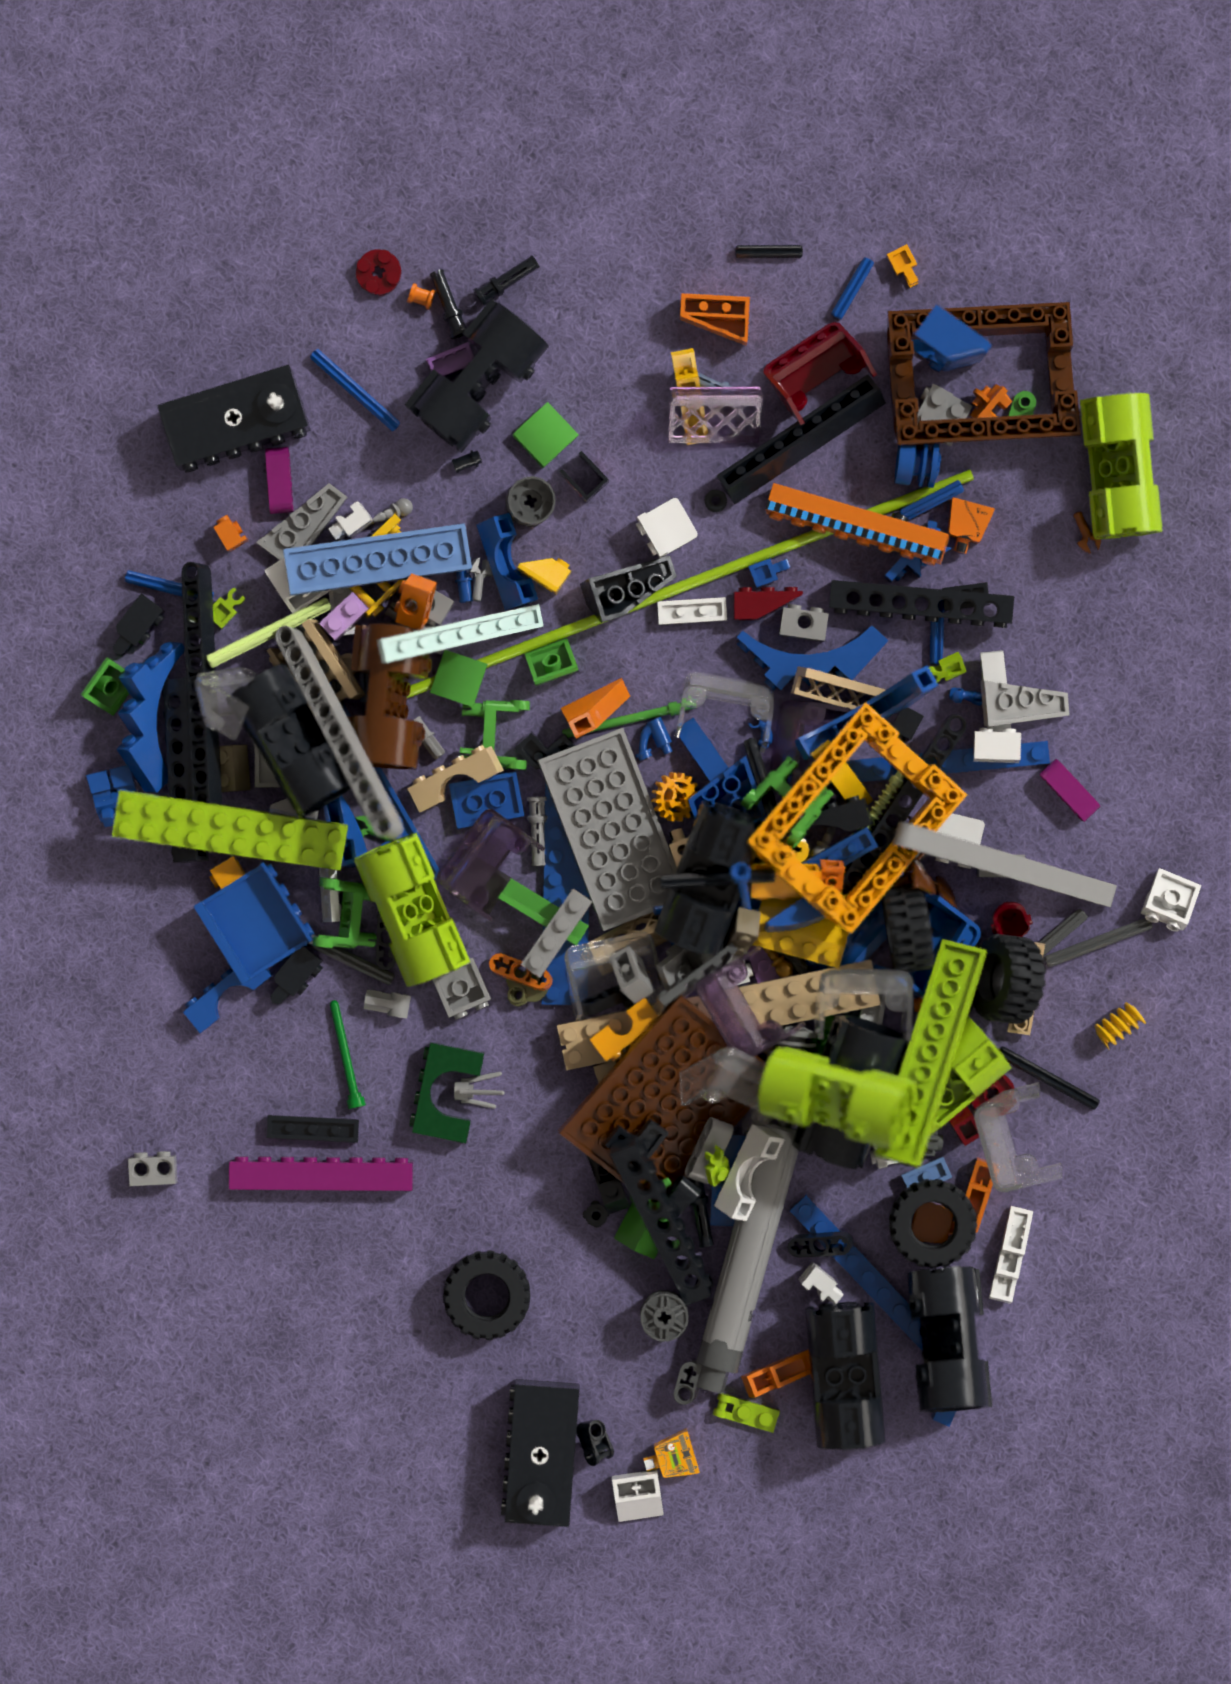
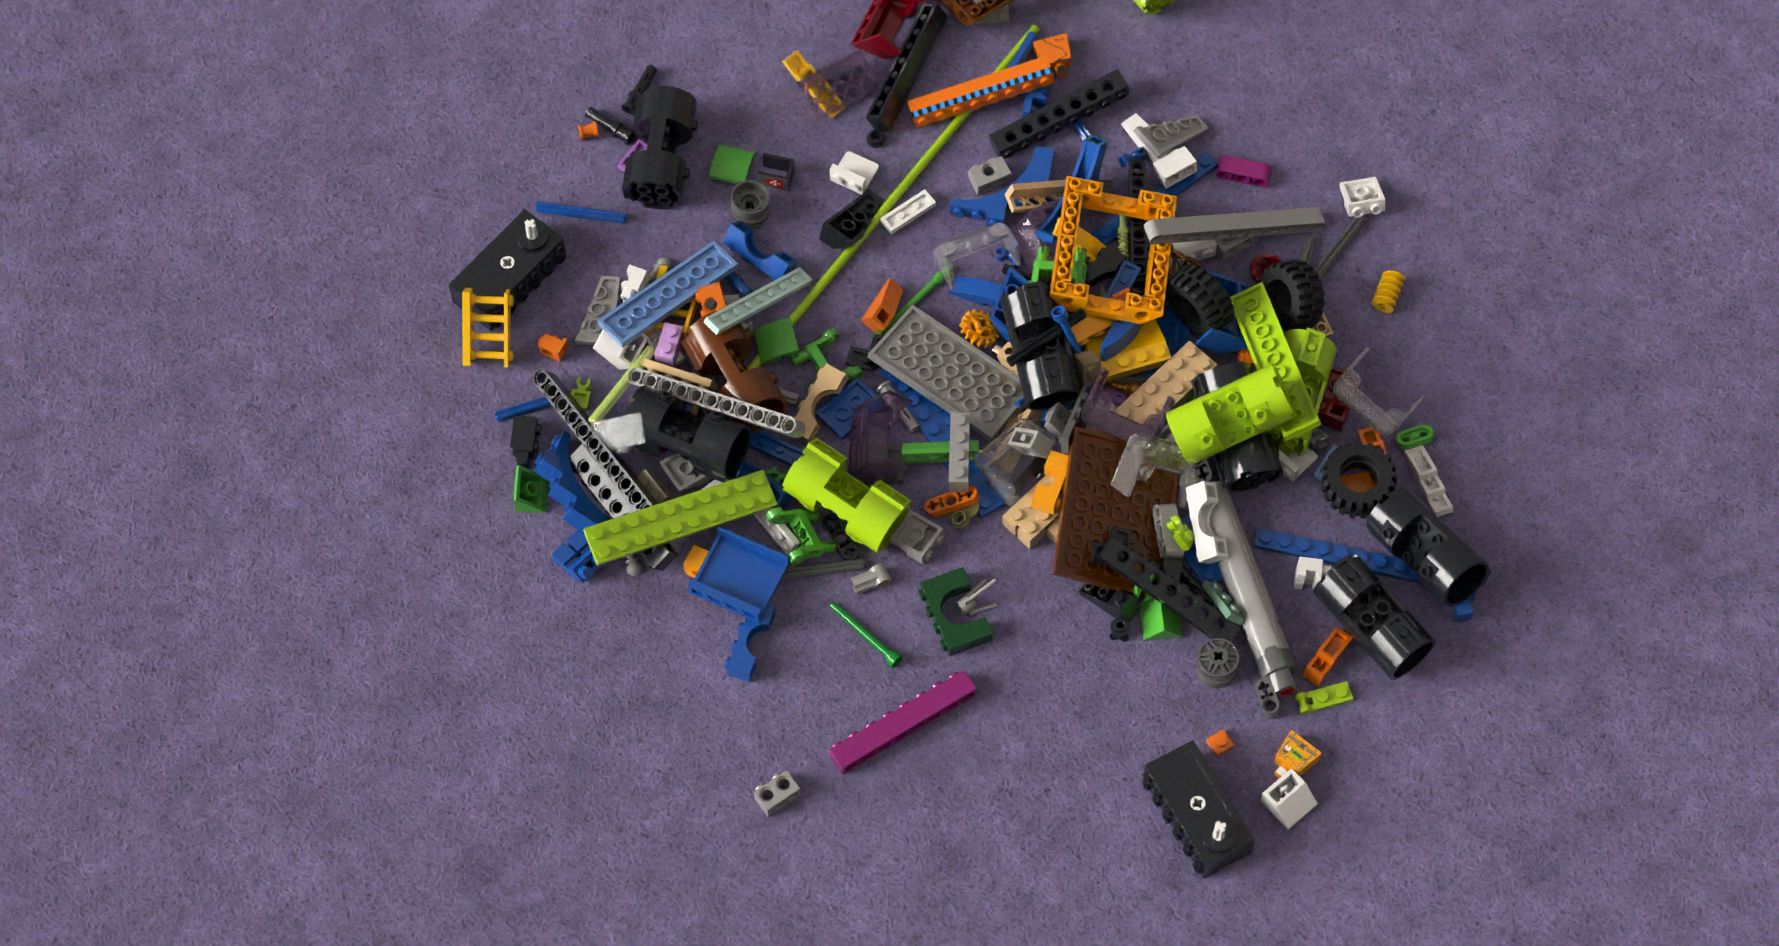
camera: 30 degrees left, 25 degrees down
(148, 475) = (470, 318): none -> yellow fence
(278, 480) = (565, 294): magenta beam -> none
(295, 973) = (791, 599): black hinge -> none
(312, 1128) = (875, 695): black plate -> none
(373, 284) = (548, 143): dark red plate -> none
(467, 461) = (688, 210): black pin -> none
(479, 576) = (746, 270): light grey bar -> none
(486, 1326) = (1080, 703): black tyre -> none
(547, 573) = (791, 242): yellow slope -> none
(551, 662) = (835, 298): bright green slope -> none
(595, 1442) = (1231, 779): black piece -> none
(614, 1392) = (1220, 742): none -> orange plate
(660, 735) = (937, 297): blue plant -> none
(712, 1258) = (1223, 601): none -> sand green plate
(717, 314) = (797, 27): orange wedge -> none
(755, 605) = (948, 182): dark red slope -> none
(765, 572) = (942, 159): blue plate -> none
(811, 1249) = (1277, 556): black beam -> none
(895, 984) = (1210, 338): clear windscreen -> none
(917, 463) = (994, 35): blue wheel -> none
(948, 667) = (1112, 144): lime plate -> none
(1030, 1199) = (1412, 437): none -> bright green plate
(1049, 1078) = (1375, 354): black axle -> none
(1084, 529) = (1138, 19): dark orange bar -> none

